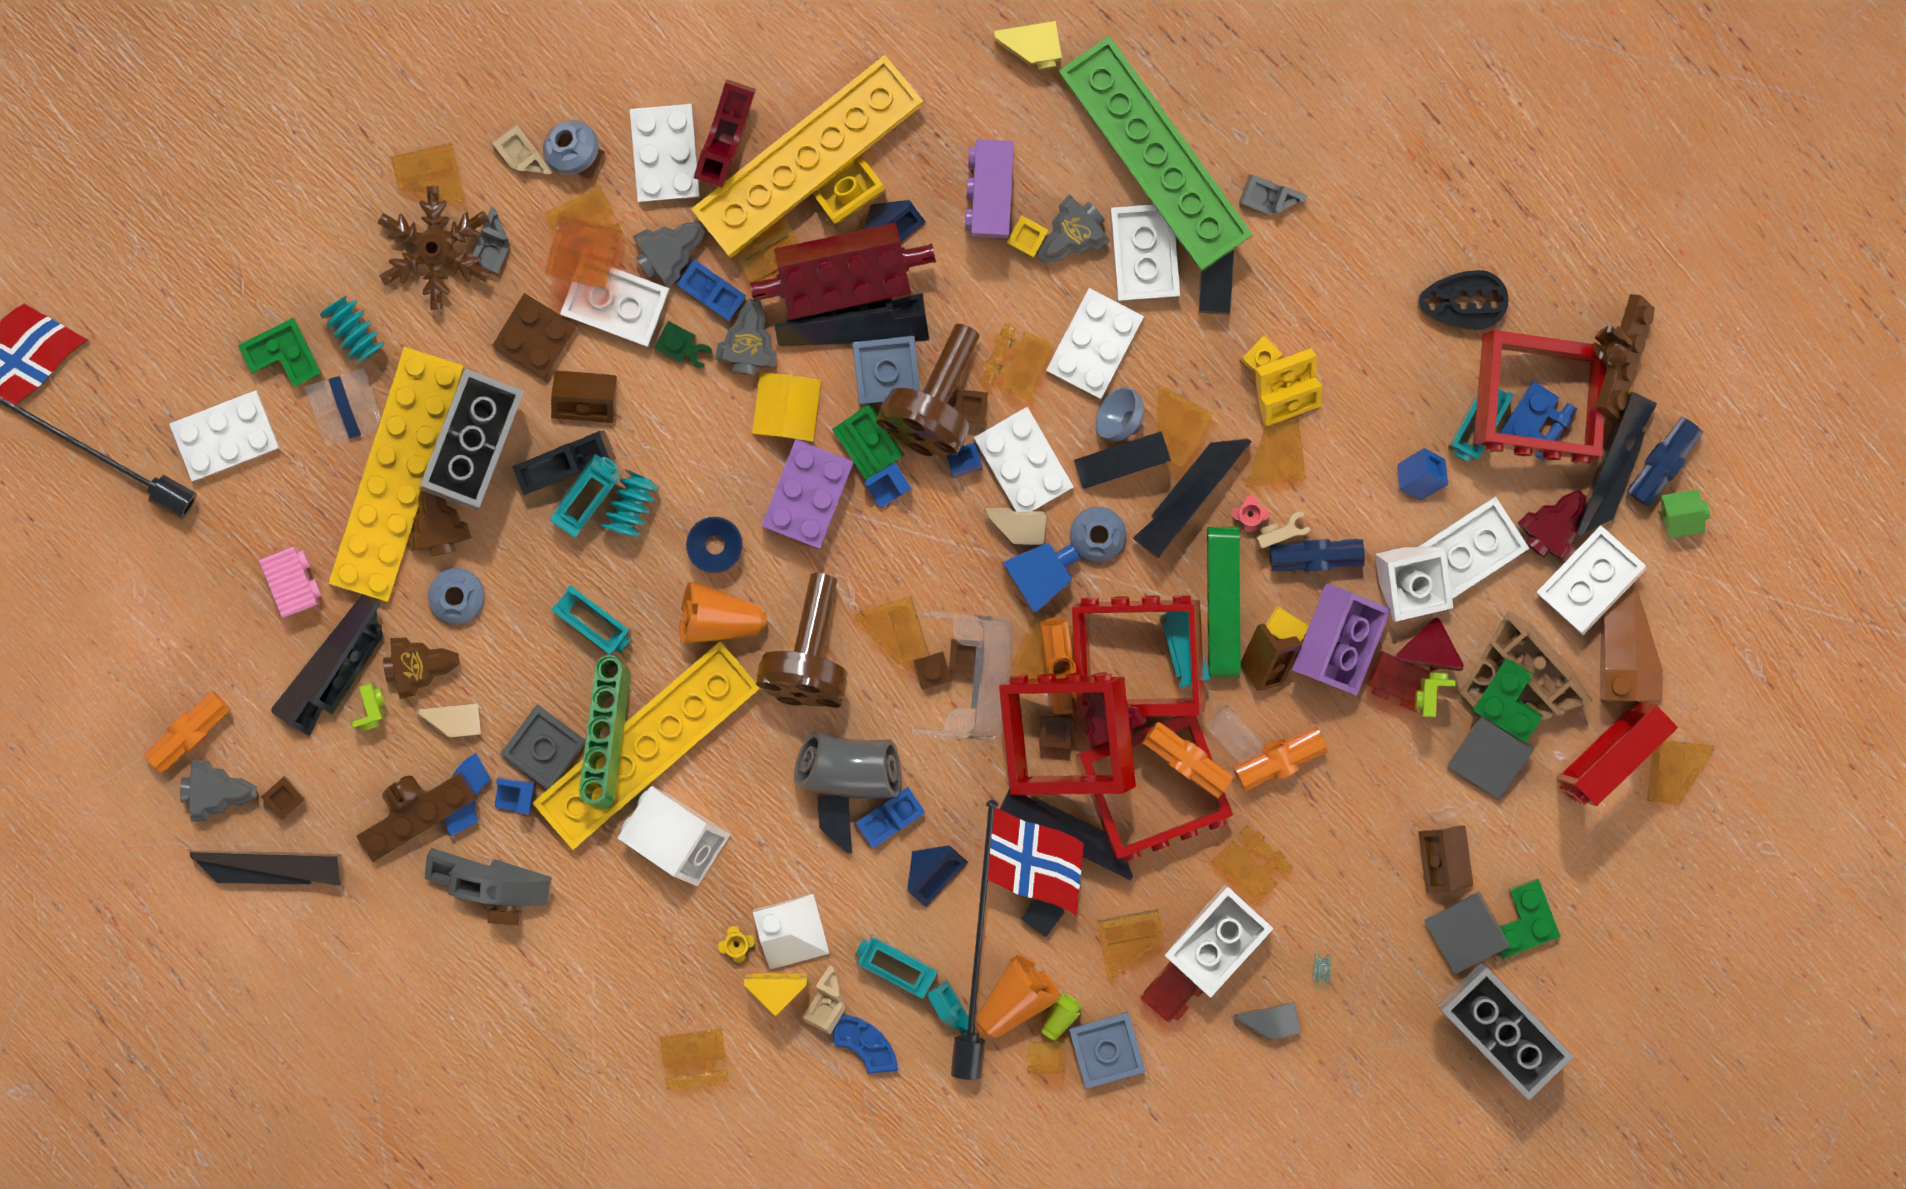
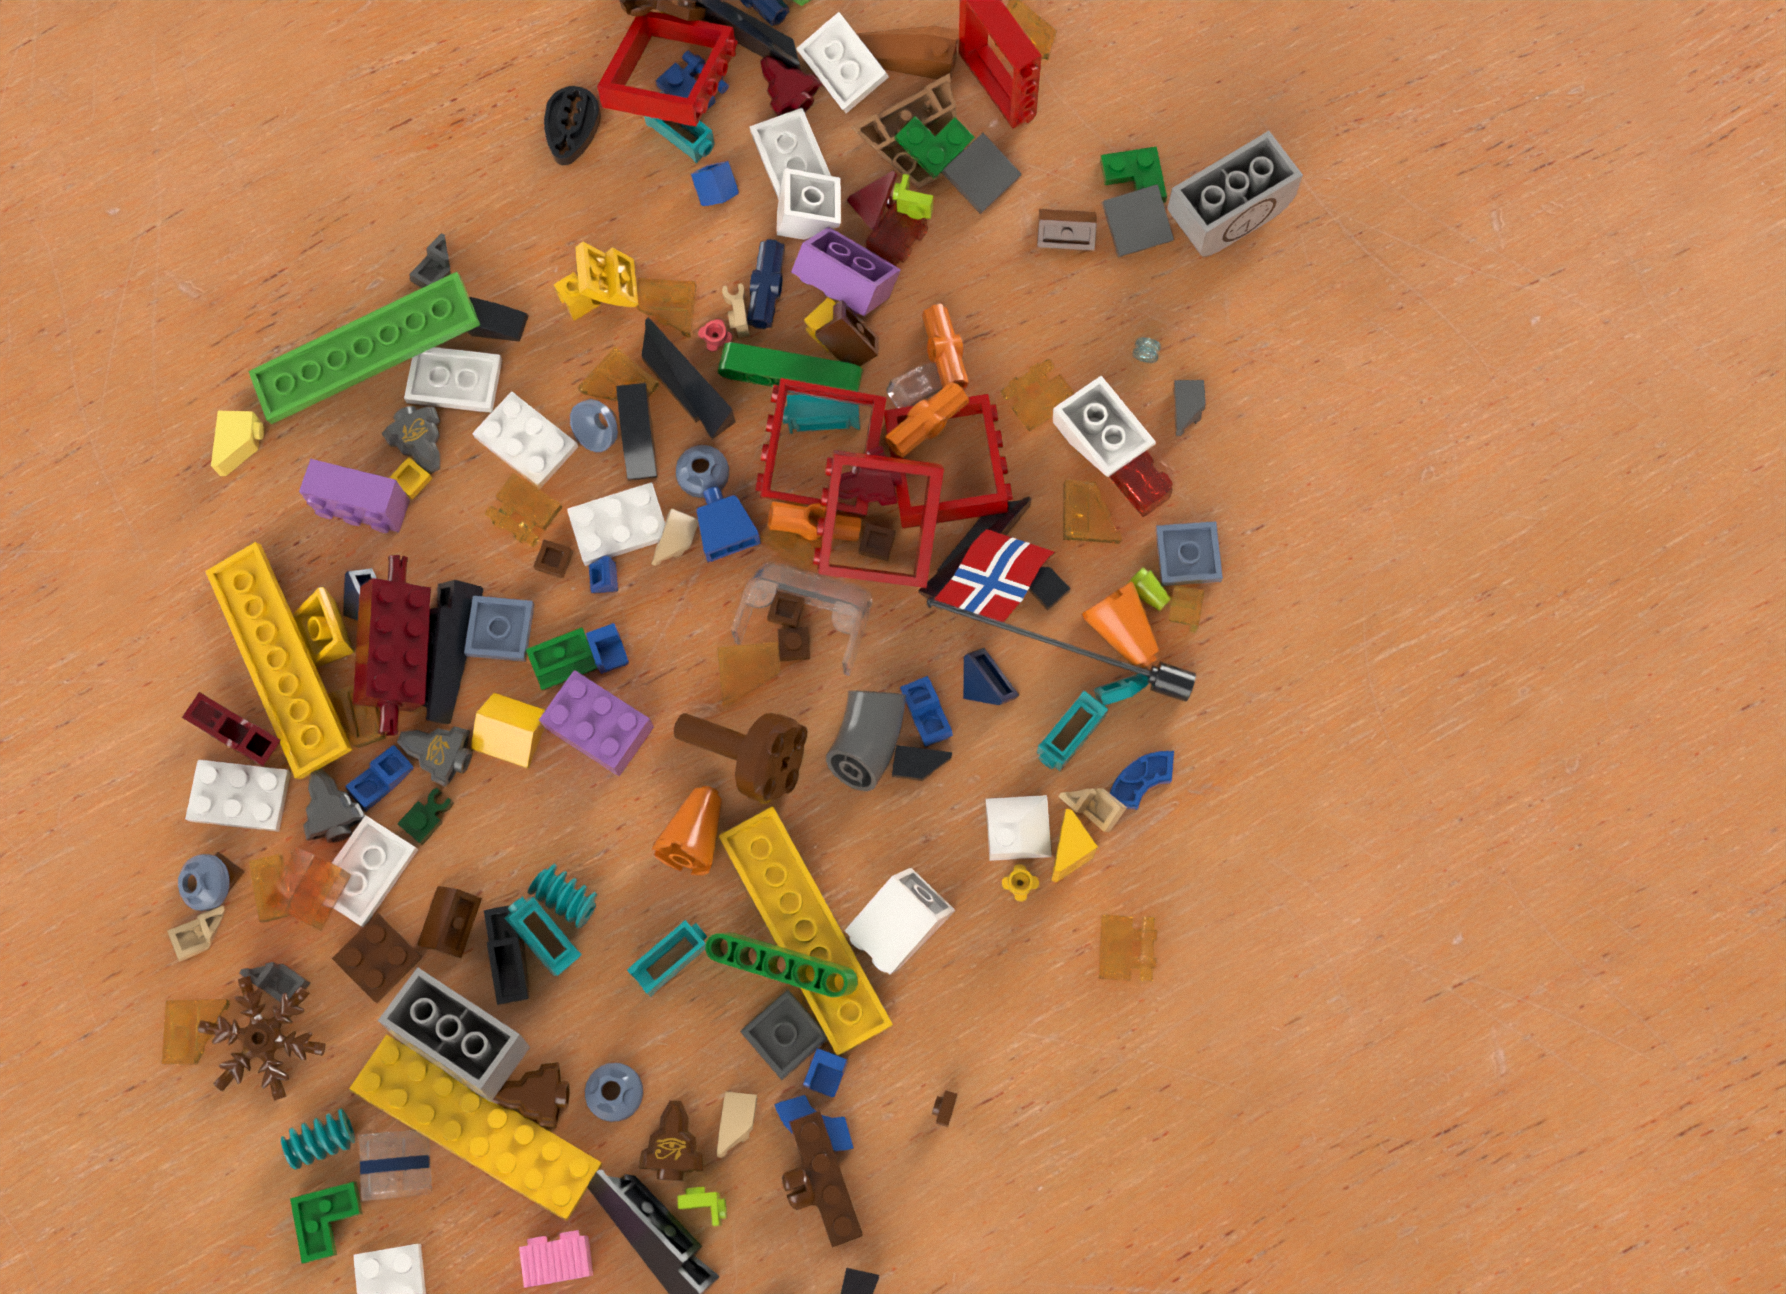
camera: 75 degrees left, 15 degrees down
(486, 884) = (908, 1120): dark grey slope -> none
(697, 541) = (615, 808): dark blue piece -> none
(924, 417) = (547, 593): reddish brown piece -> none

